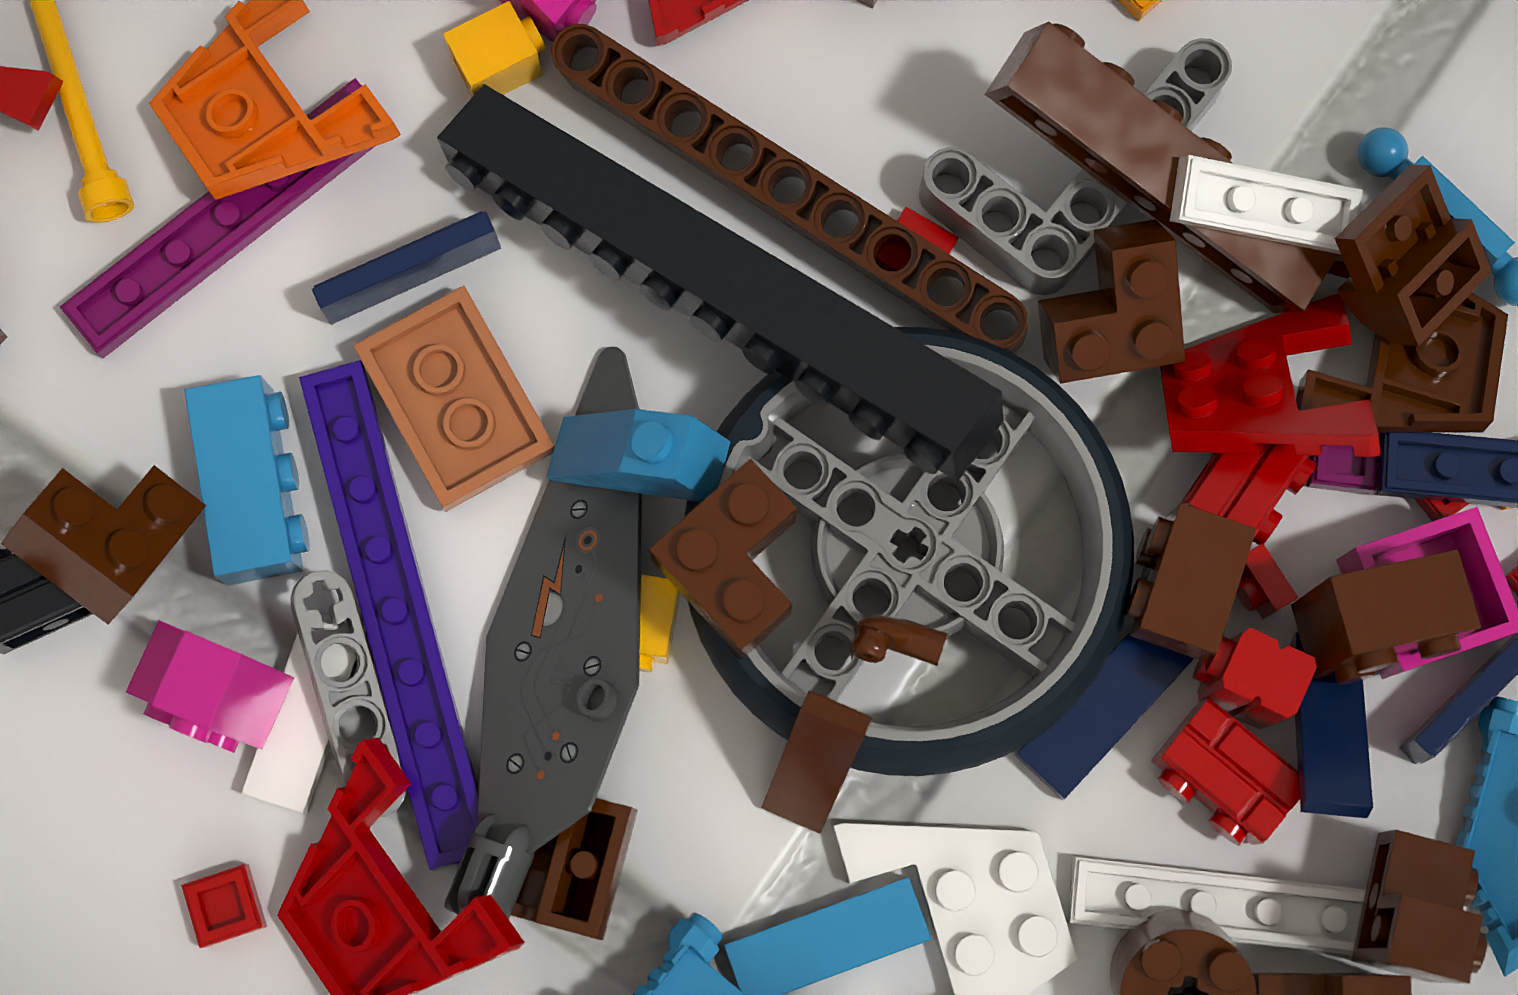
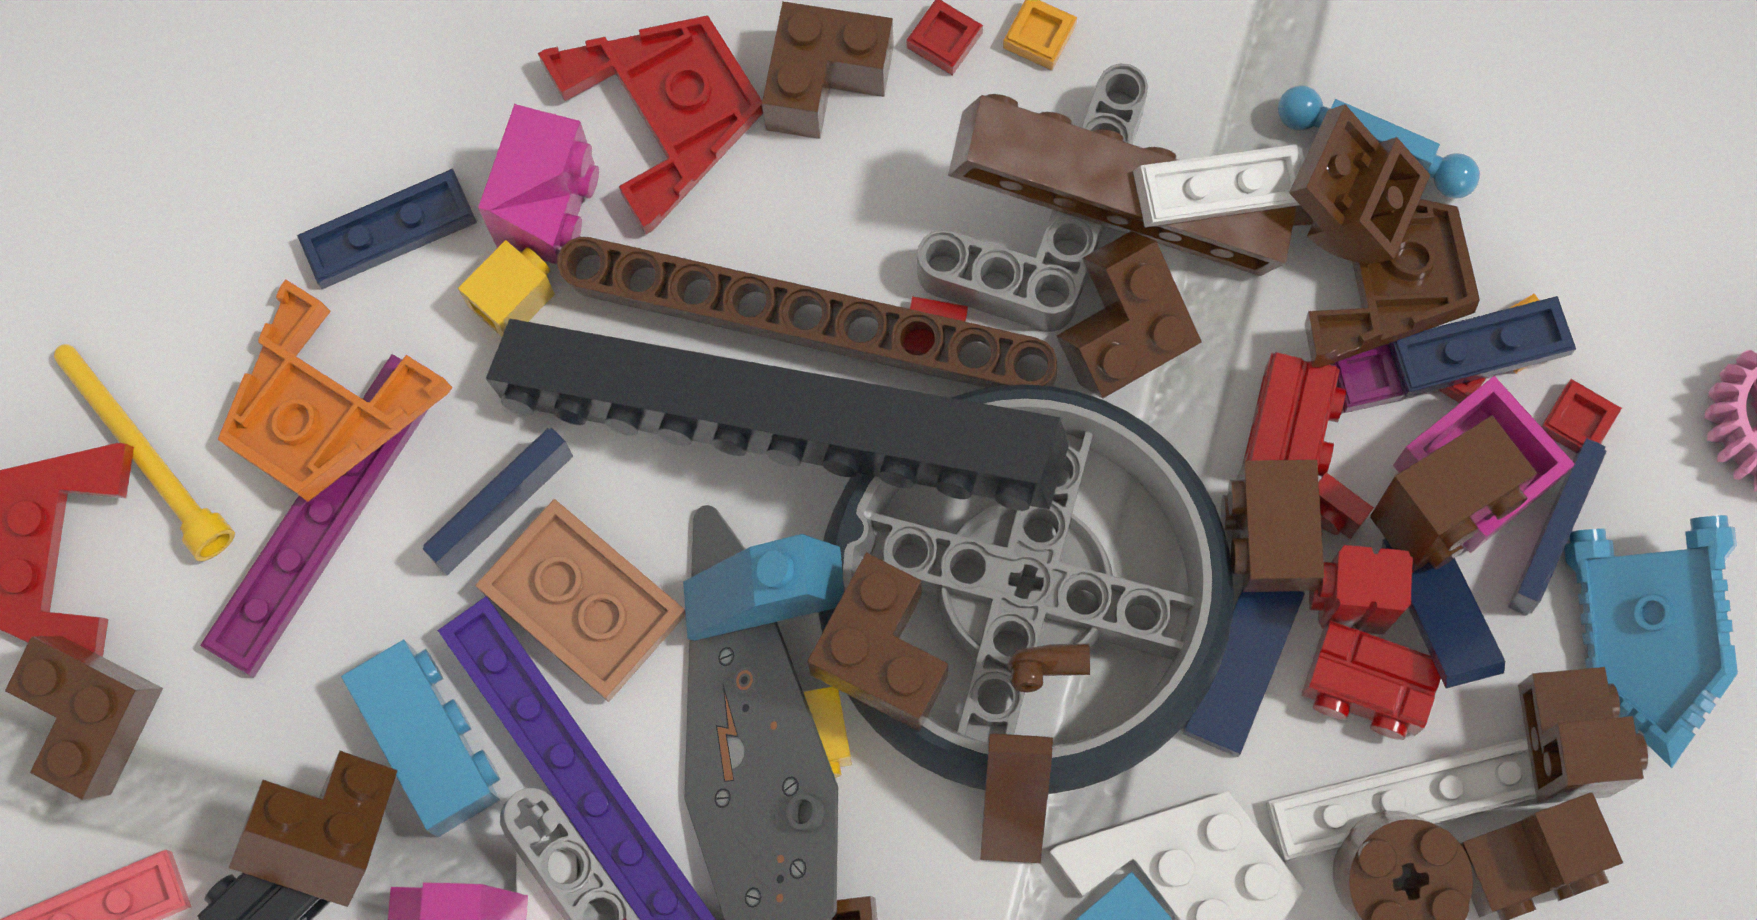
camera: 15 degrees left, 5 degrees down
(1242, 392) = (1260, 351): red wing -> none

